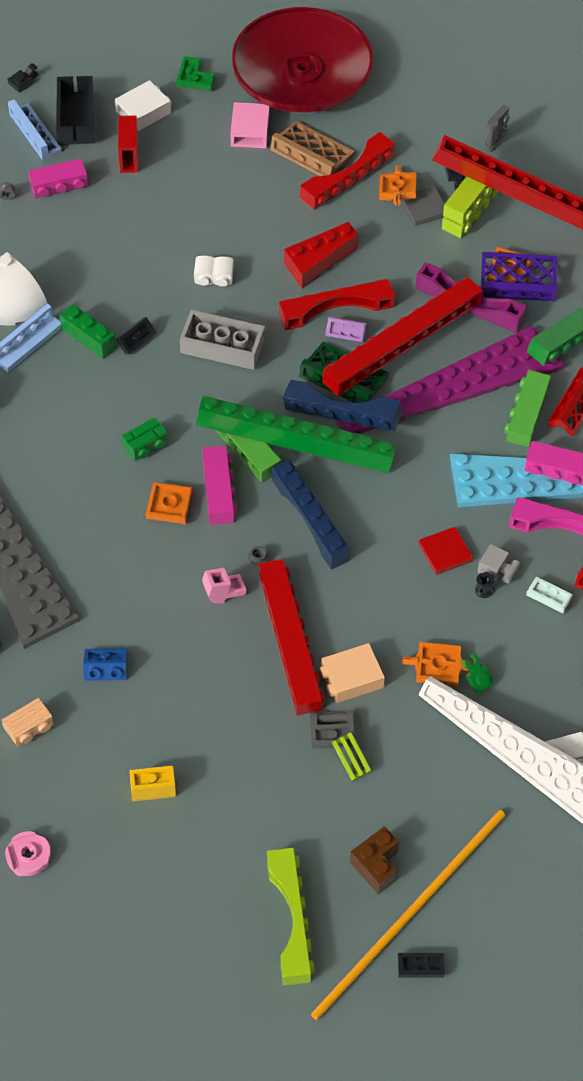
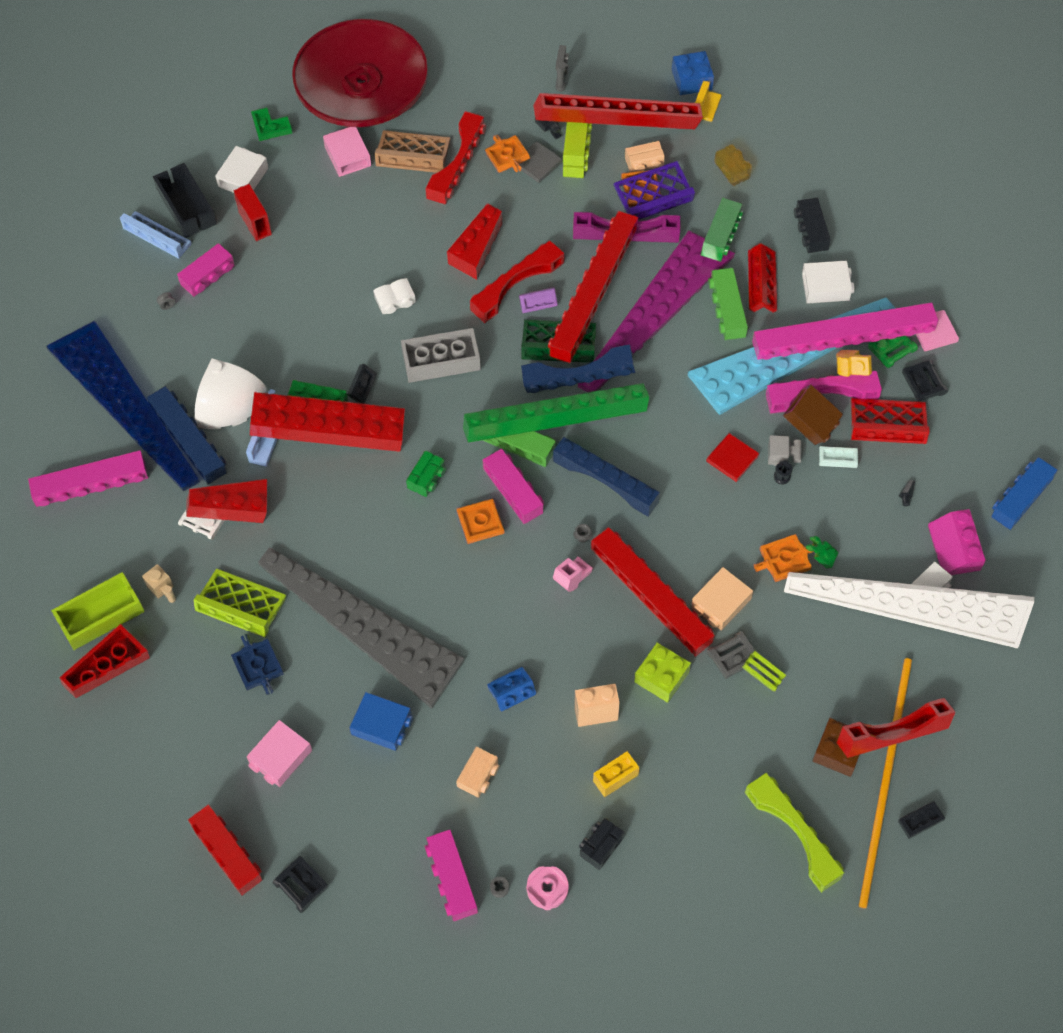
camera: 25 degrees left, 5 degrees up
(21, 79) = (117, 191): black plate -> none
(80, 353) = (327, 421): none -> red brick
(101, 838) = (601, 843): none -> black brick
(169, 711) = (596, 705): none -> light nougat brick
(253, 713) = (662, 672): none -> lime brick
(483, 874) = (928, 719): none -> red arch
(529, 240) = (644, 157): none -> light nougat brick
(545, 544) = (813, 415): none -> reddish brown brick

